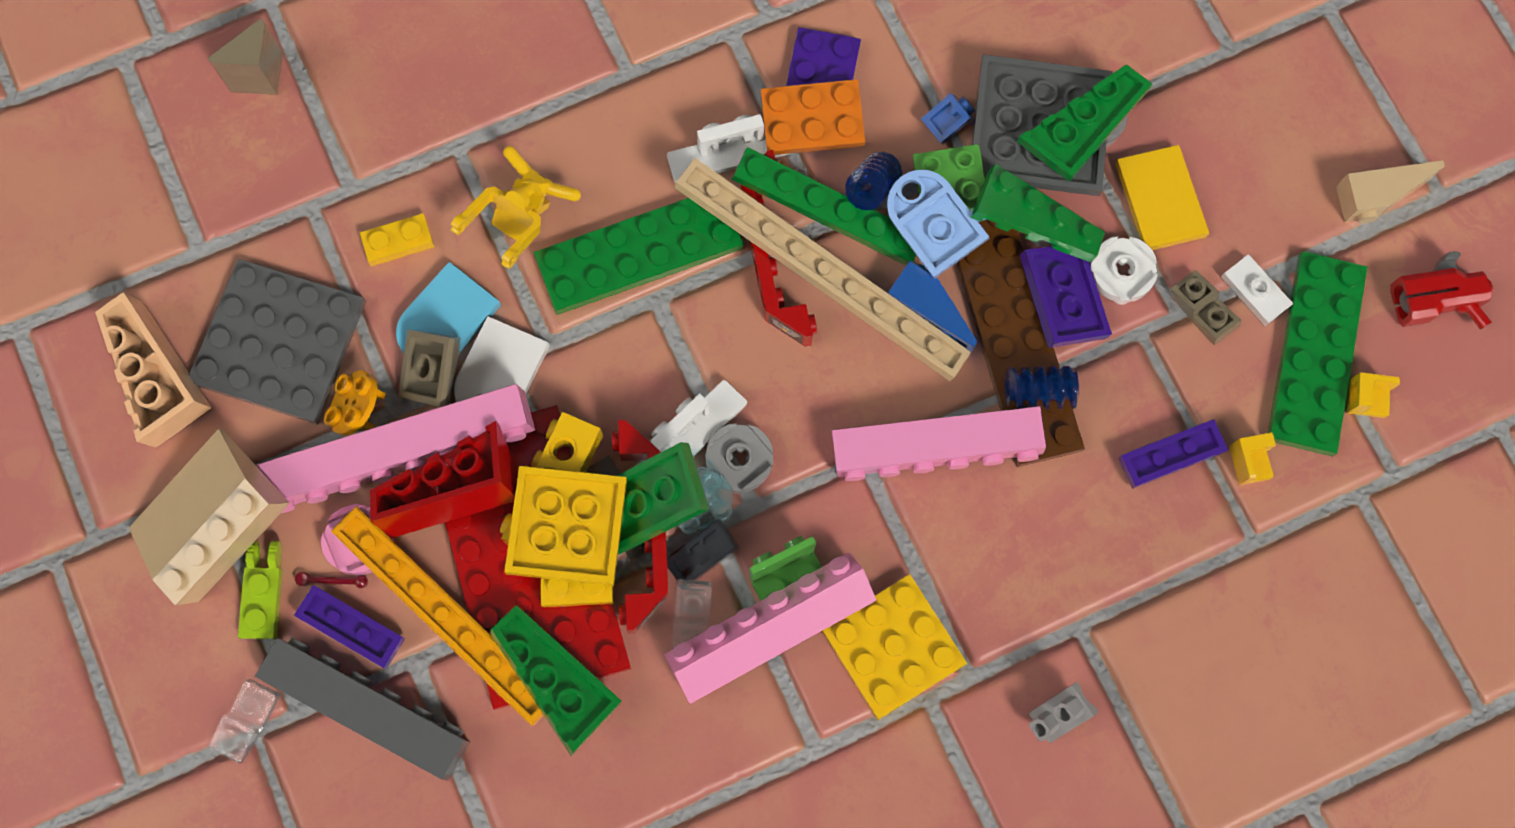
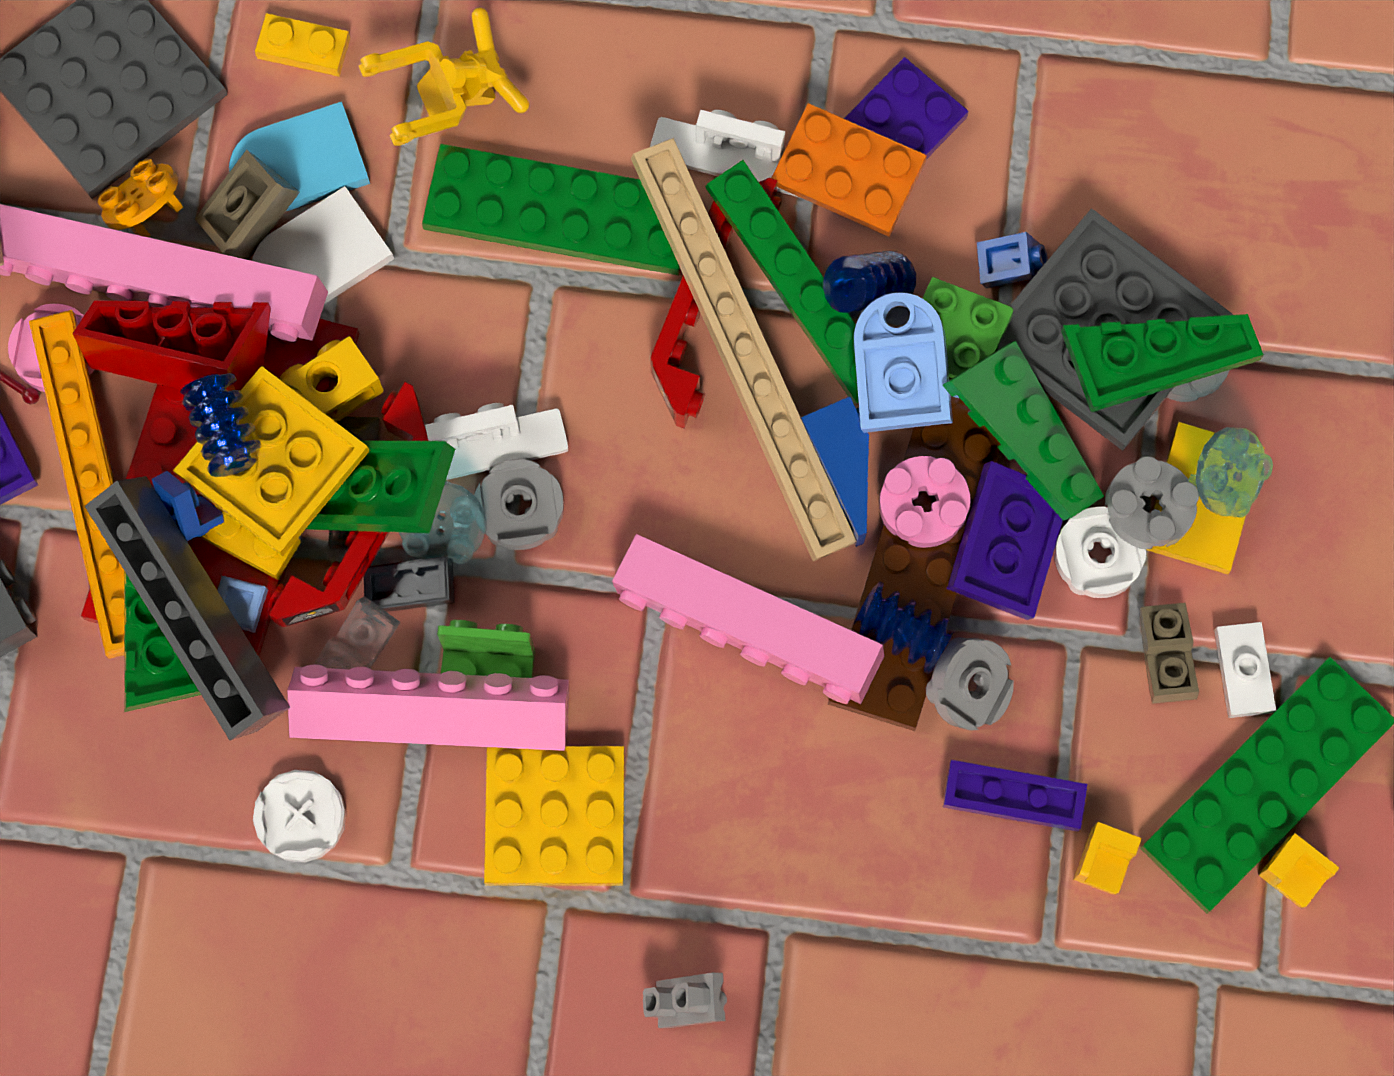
camera: 35 degrees right, 0 degrees up
(520, 521) = (219, 424): none -> clear blue piece
(525, 593) = (191, 513): none -> blue bracket
(571, 658) = (187, 607): none -> dark grey brick
(598, 635) = (243, 600): none -> light blue tile
(727, 751) = (299, 816): none -> white tile
(999, 281) = (910, 522): none -> bright pink plate
(1095, 387) = (951, 678): none -> light grey plate
(1141, 202) = (1166, 484): none -> light grey plate
(1175, 170) = (1231, 471): none -> clear light blue plate

